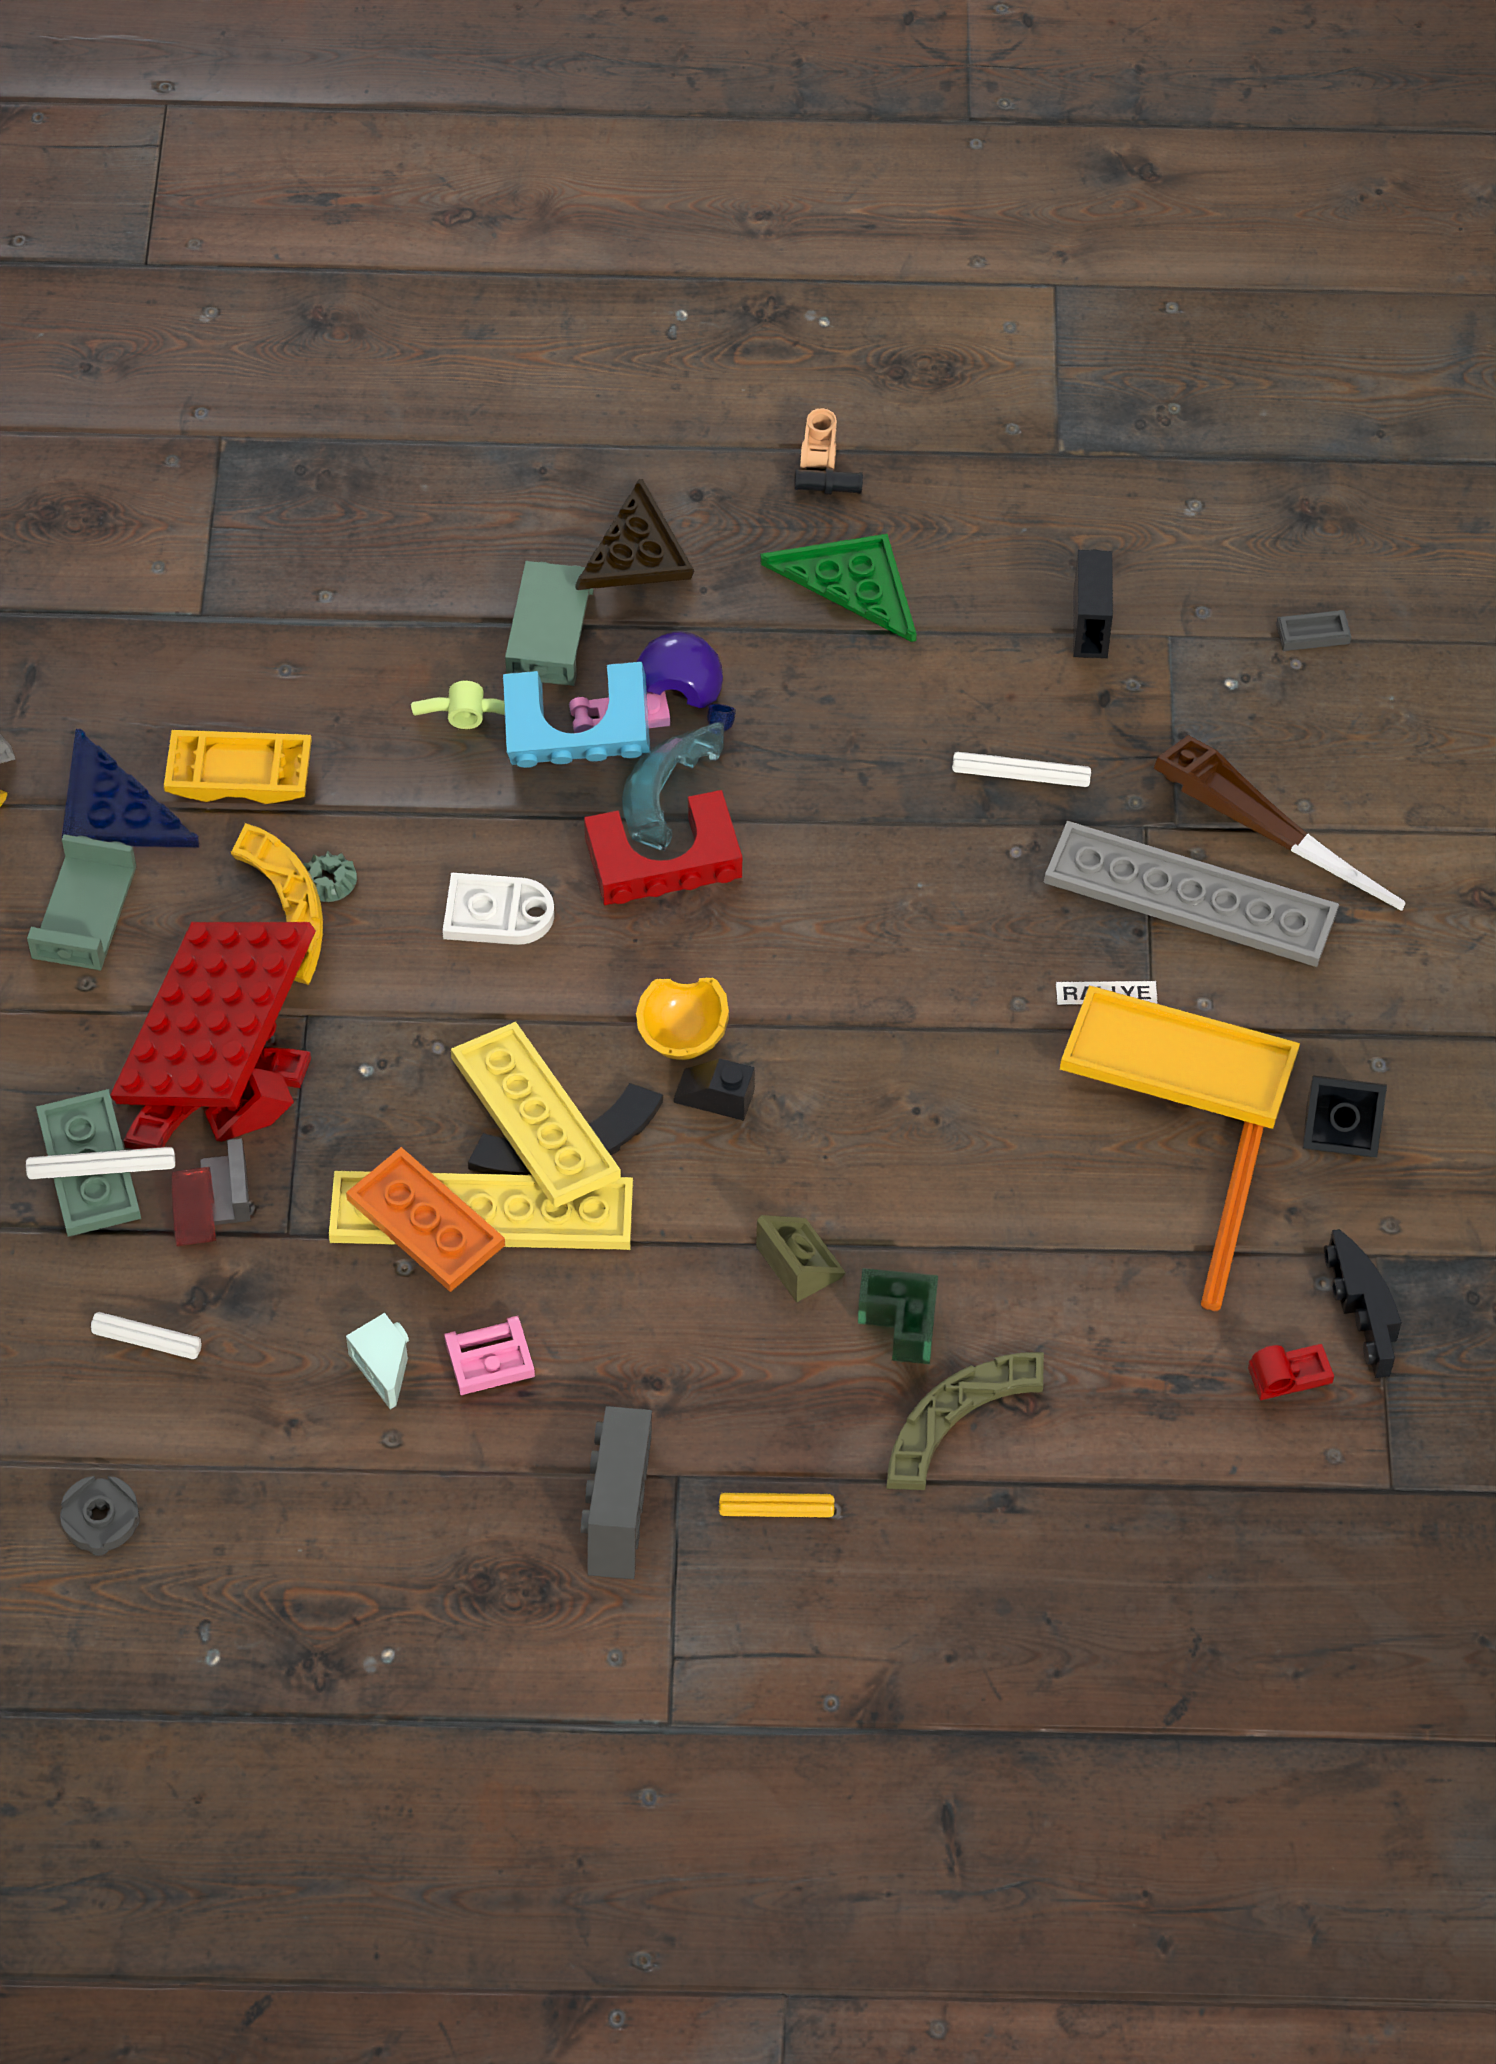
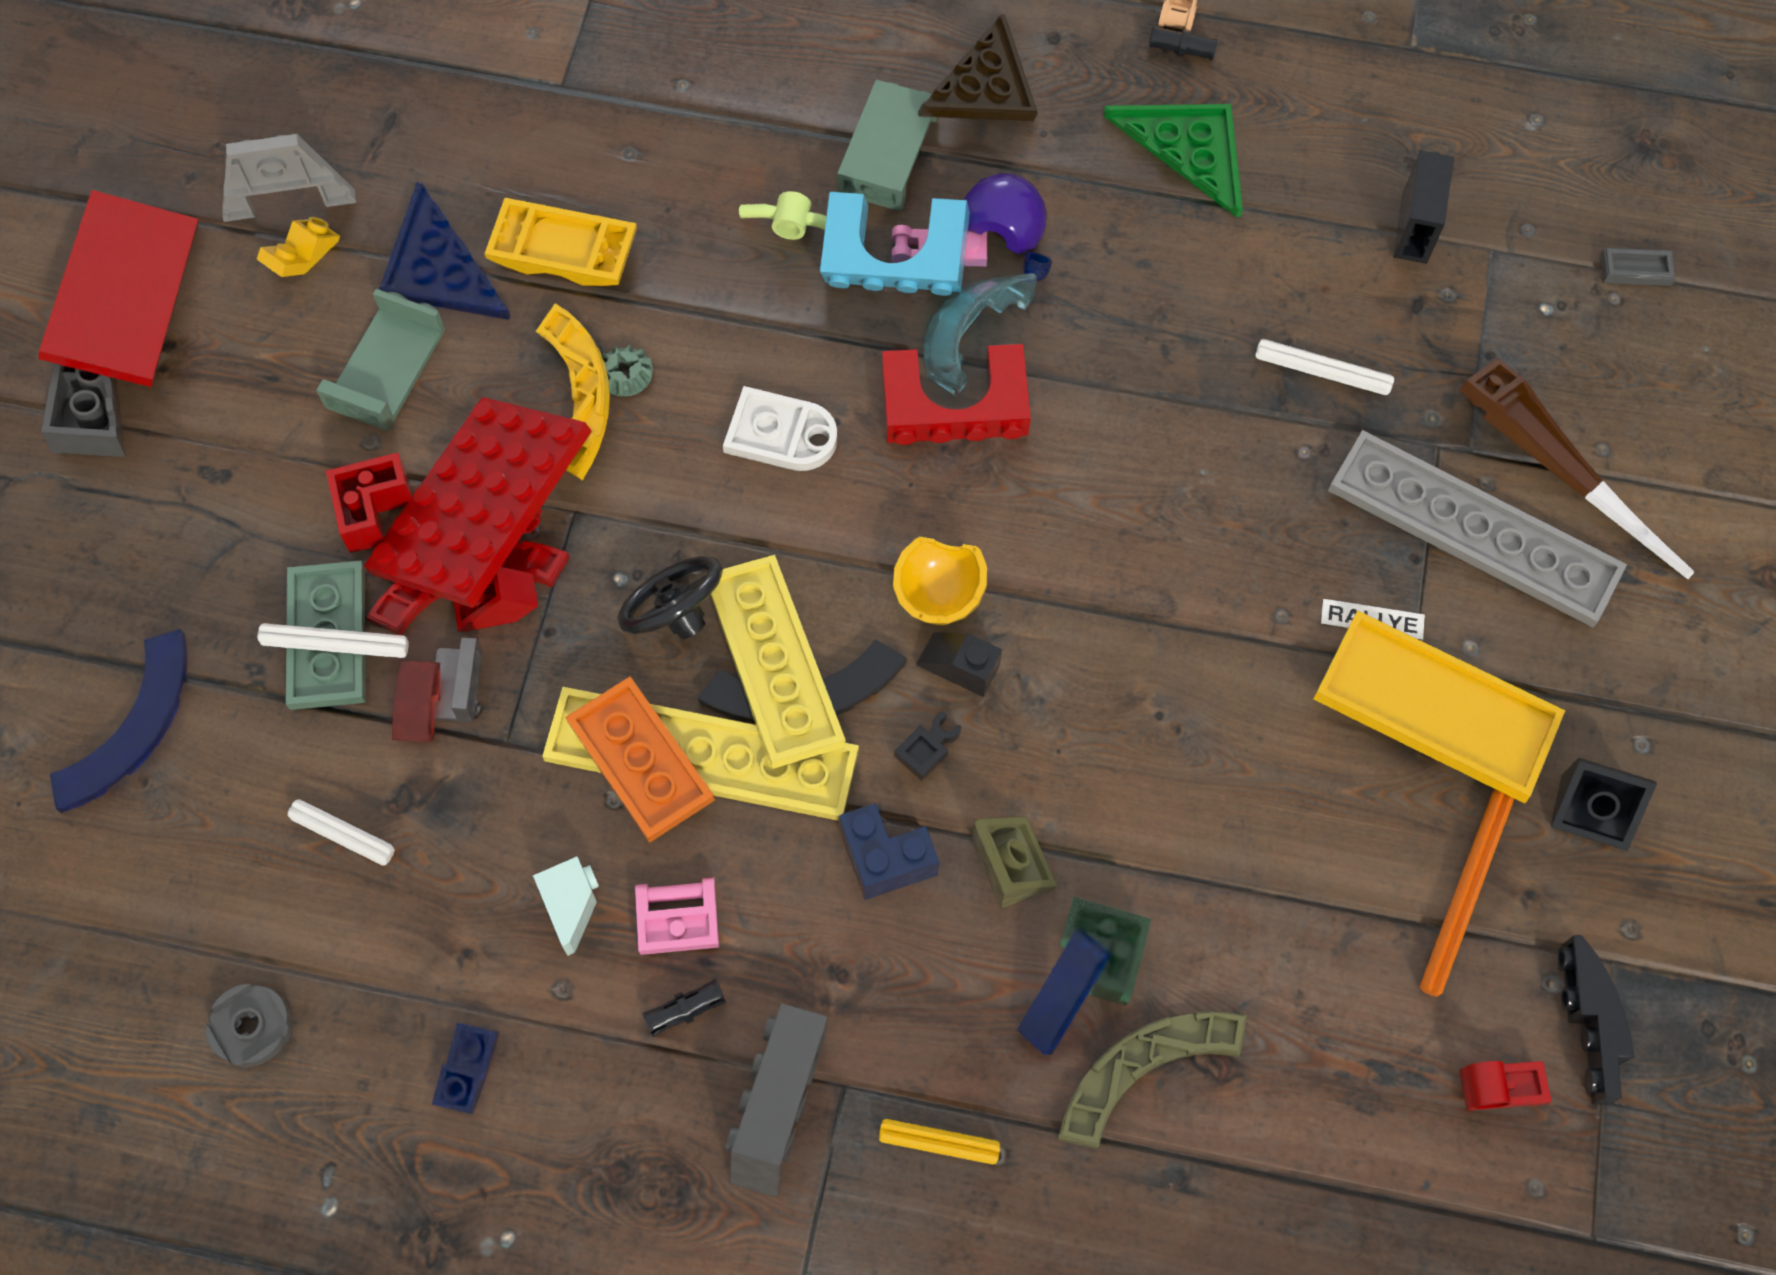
camera: 10 degrees right, 10 degrees up
(98, 1025) = (363, 492): none -> red brick
(316, 1516) = (466, 1068): none -> clear blue slope
(428, 1077) = (675, 603): none -> black piece
(513, 1432) = (684, 1008): none -> black pin
(674, 1273) = (885, 862): none -> dark blue brick
(698, 1173) = (925, 749): none -> black plate
(868, 1353) = (1064, 992): none -> clear blue tile

